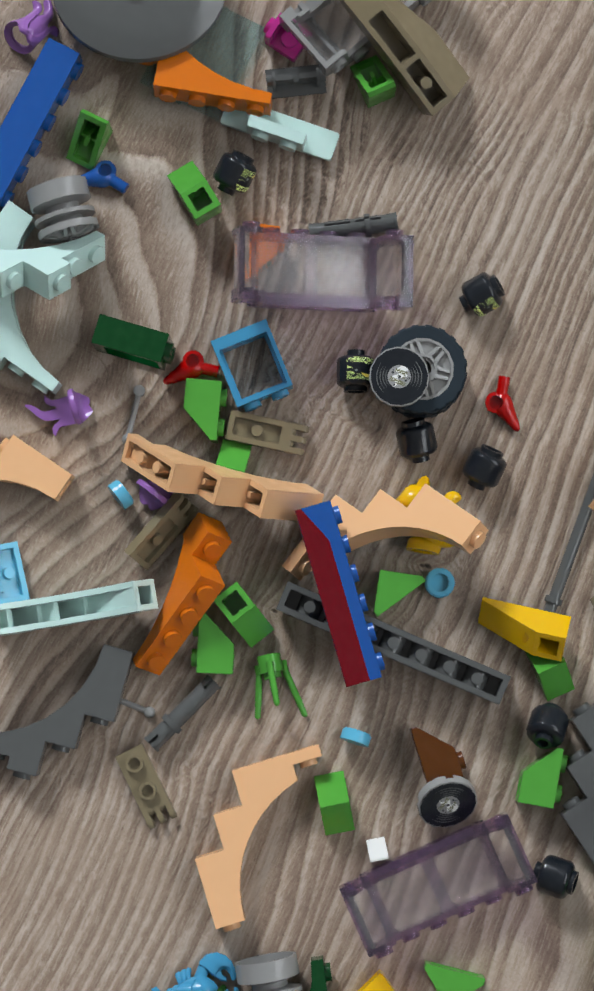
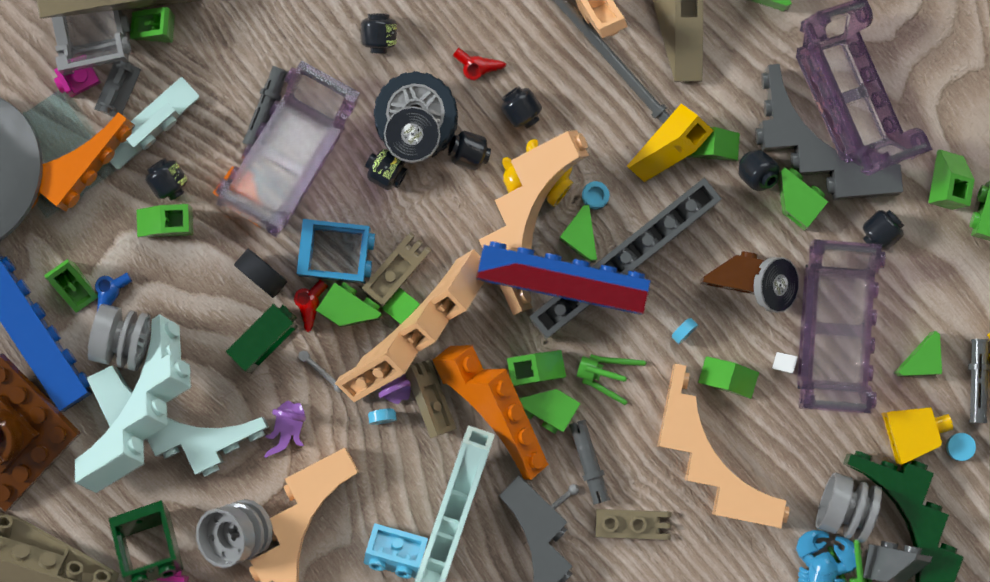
camera: 70 degrees left, 0 degrees up
(193, 307) = (260, 273): none -> black tyre

